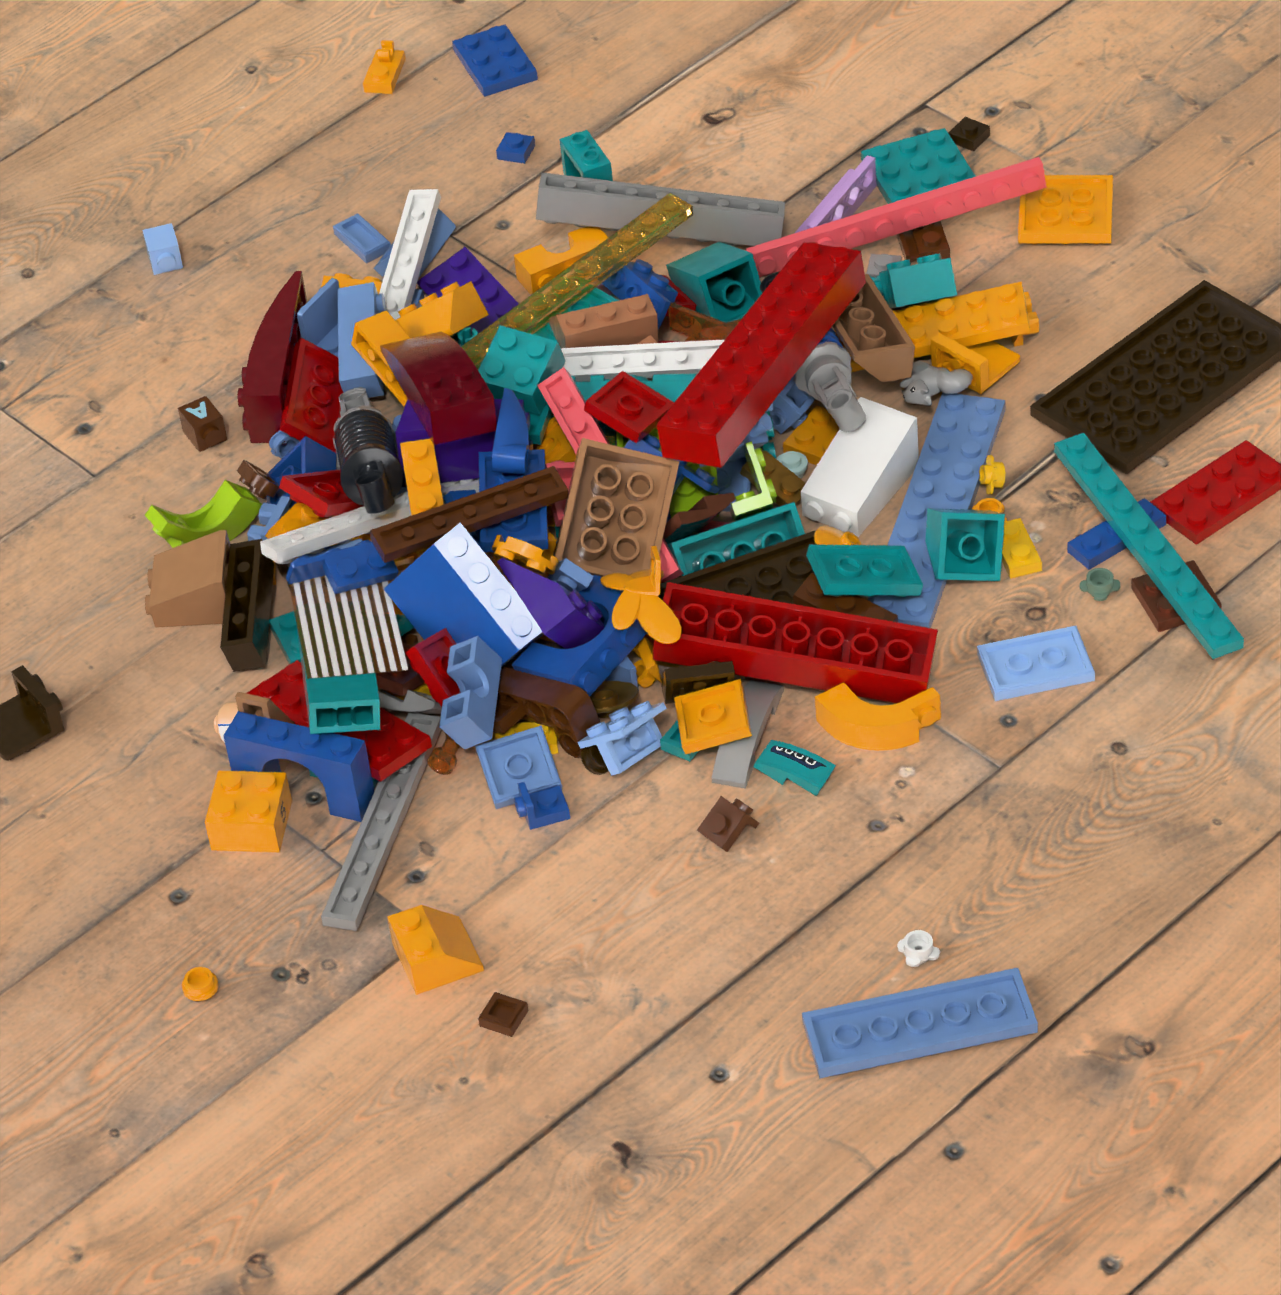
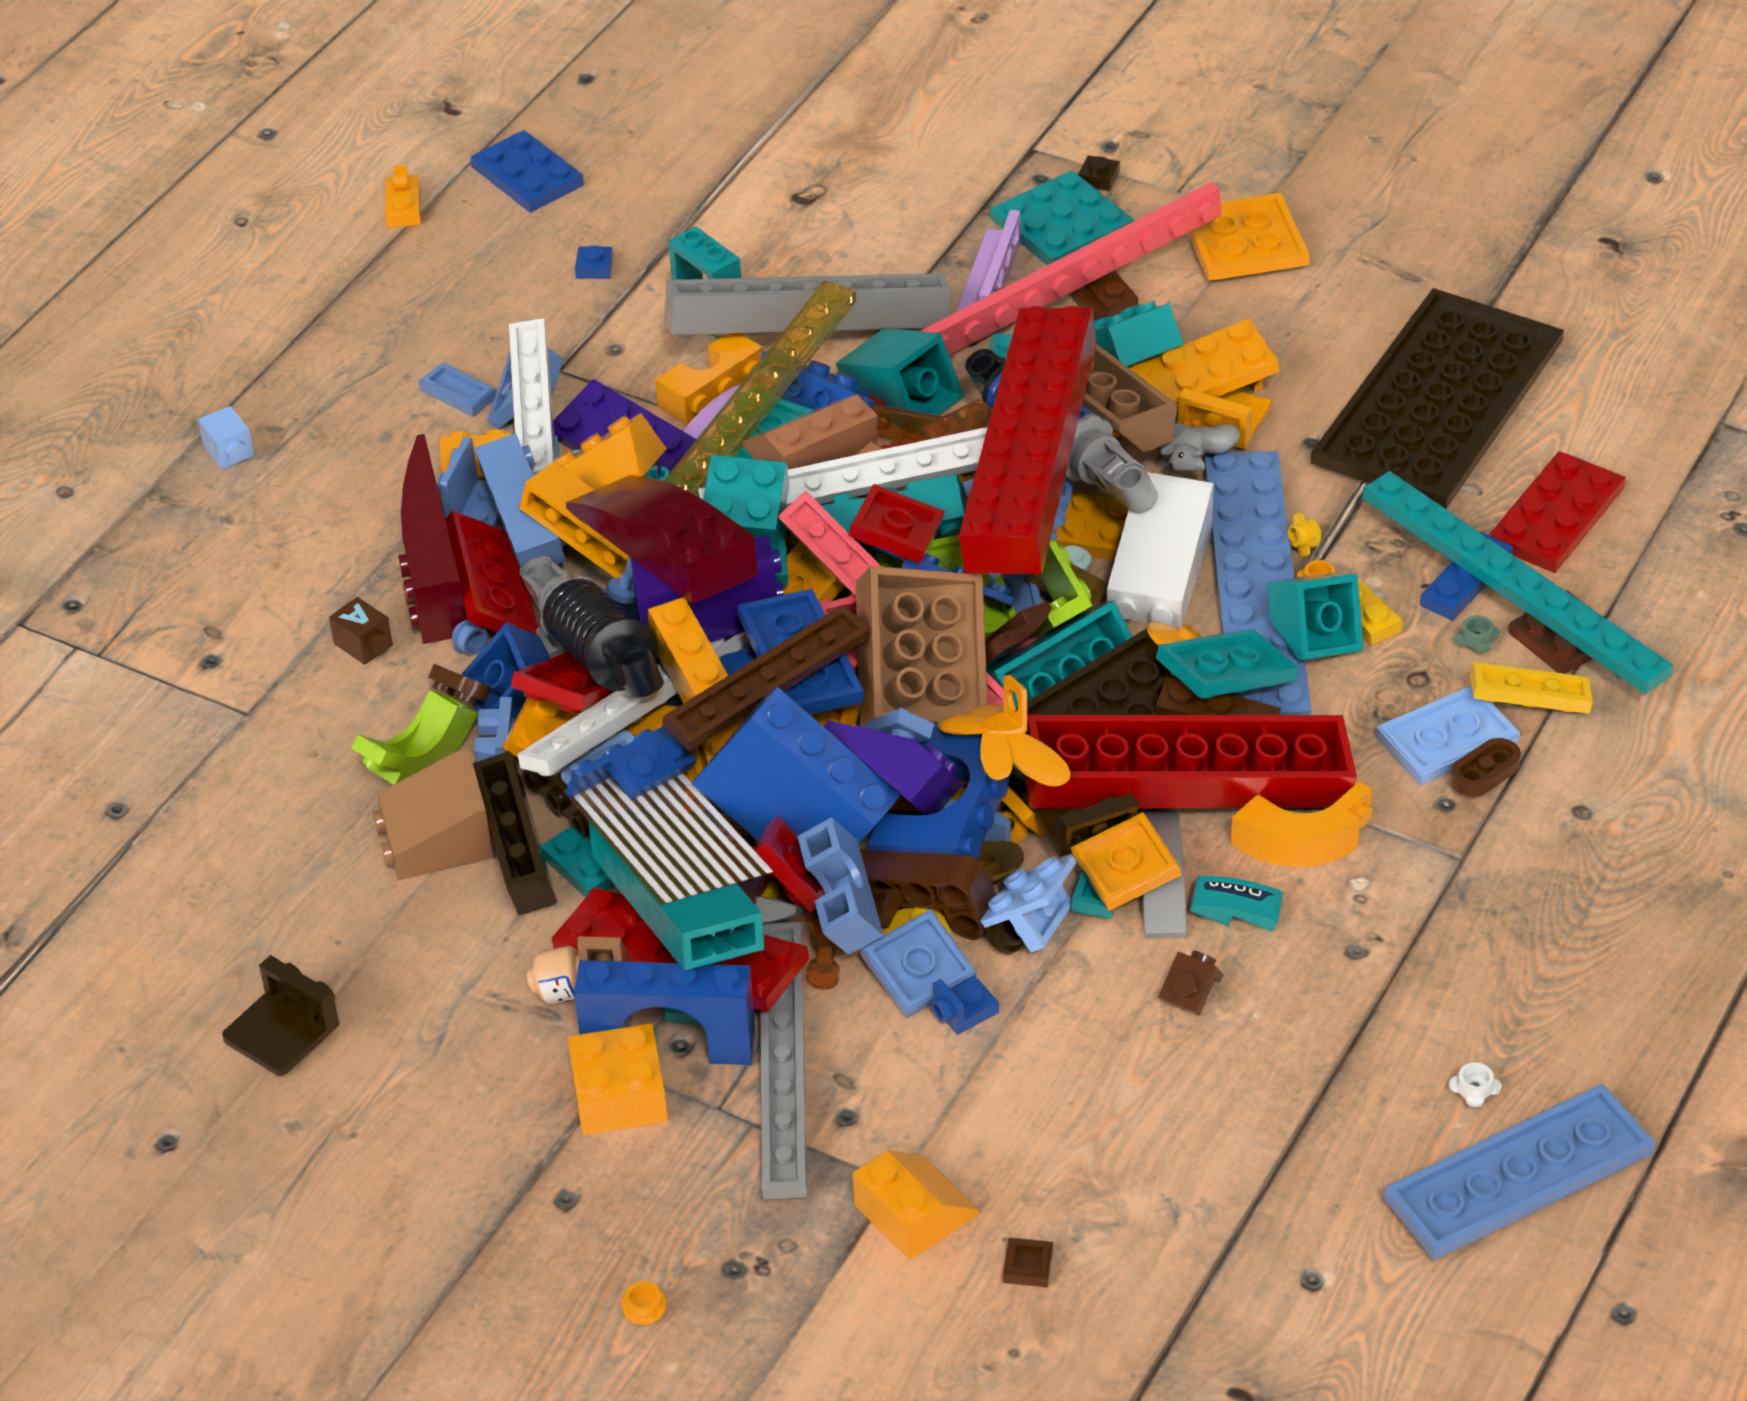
camera: 20 degrees left, 0 degrees up
(511, 437) = (779, 585): blue piece -> none
(525, 555) = (850, 711): light orange plate -> none
(1051, 695) = (1481, 768): none -> reddish brown plate
(1119, 636) = (1531, 687): none -> yellow plate

